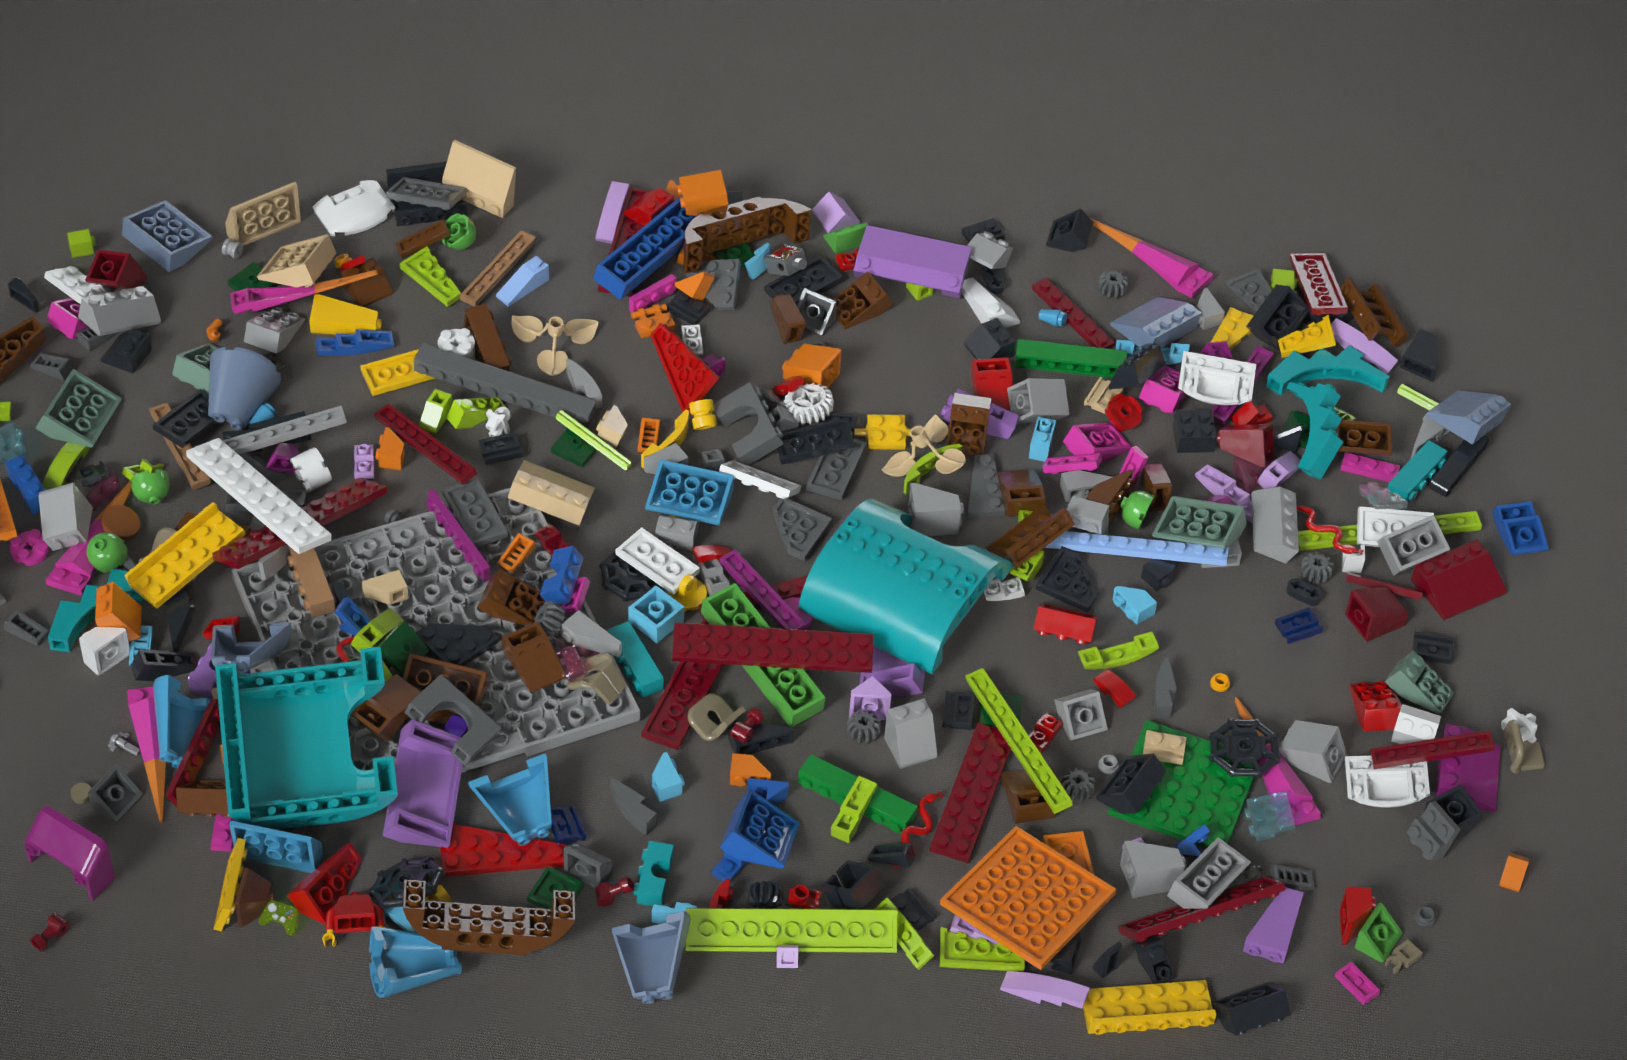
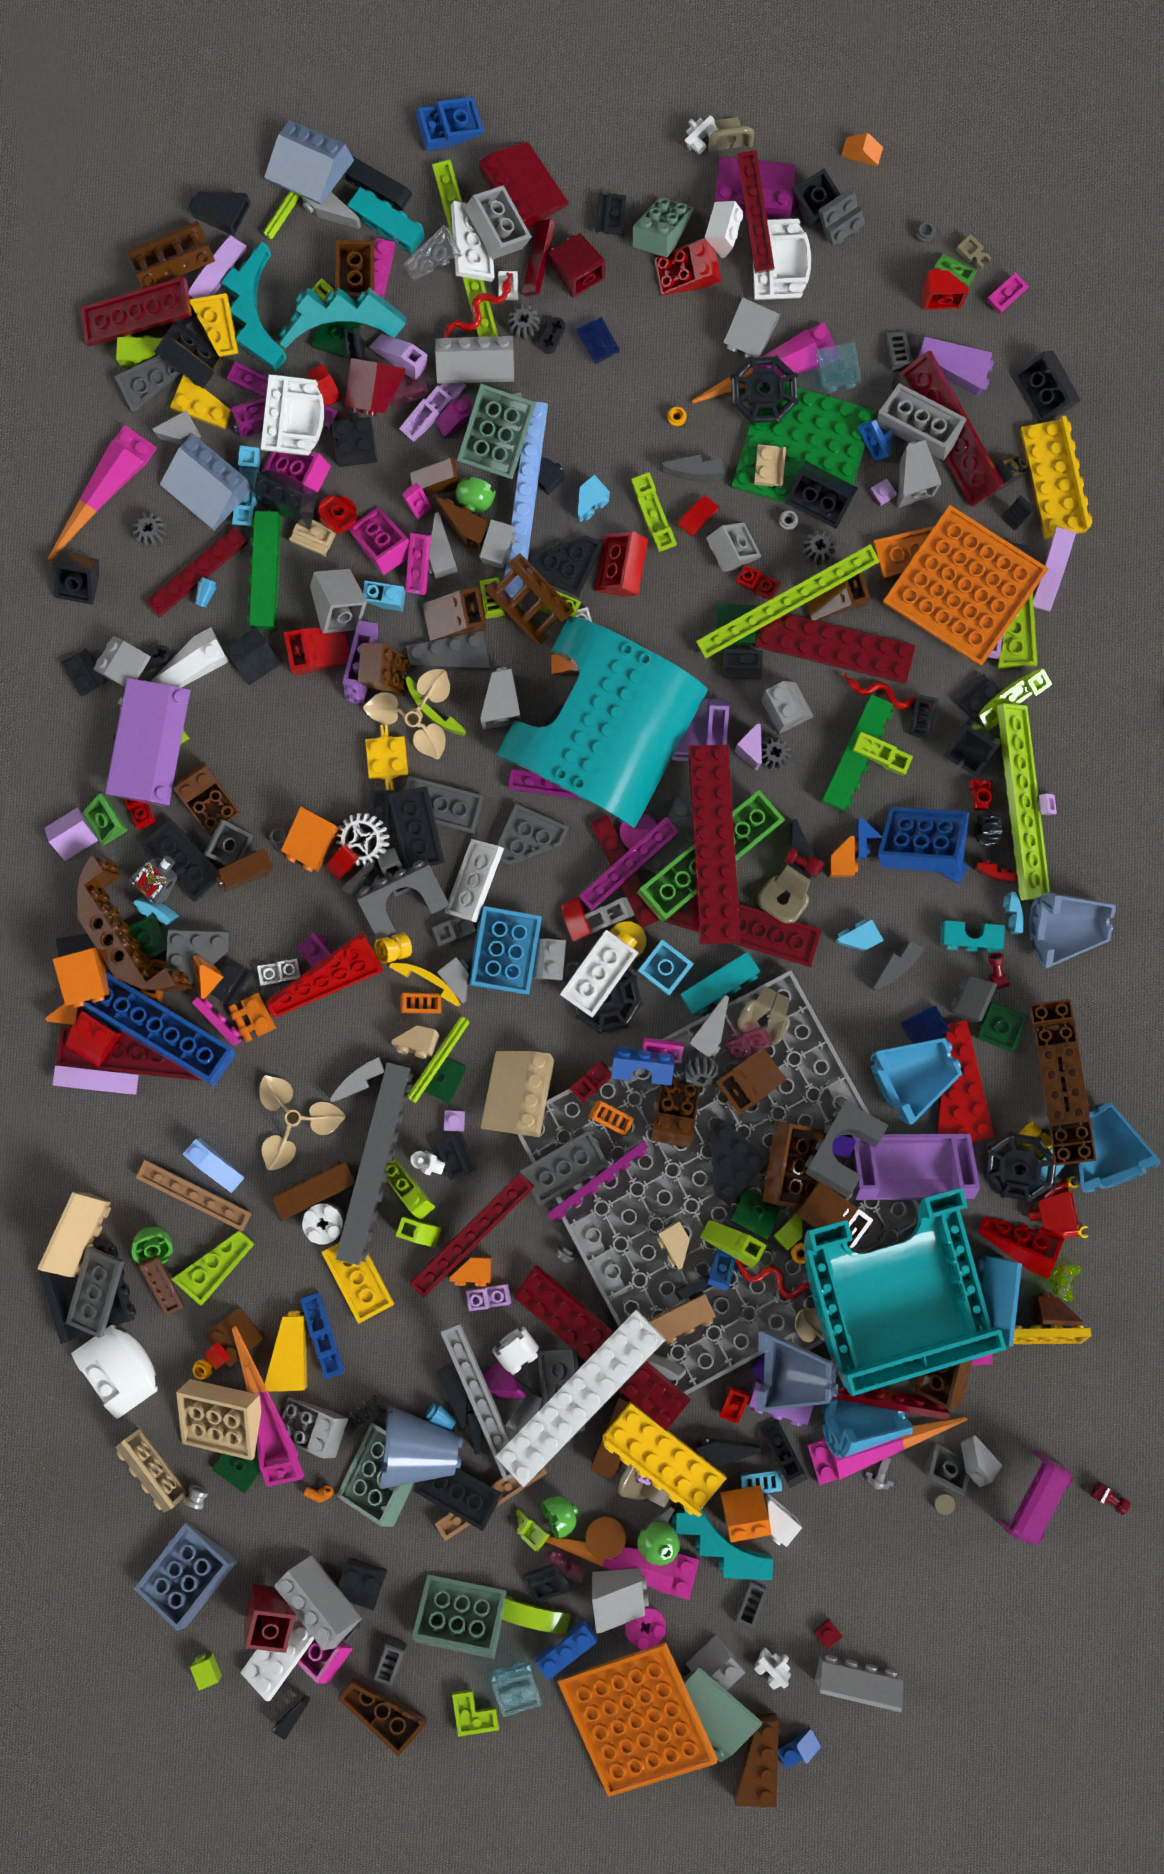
camera: 90 degrees left, 35 degrees up
(114, 819) = (979, 1461): none -> light grey slope
(534, 452) = (454, 1120): none -> lavender plate

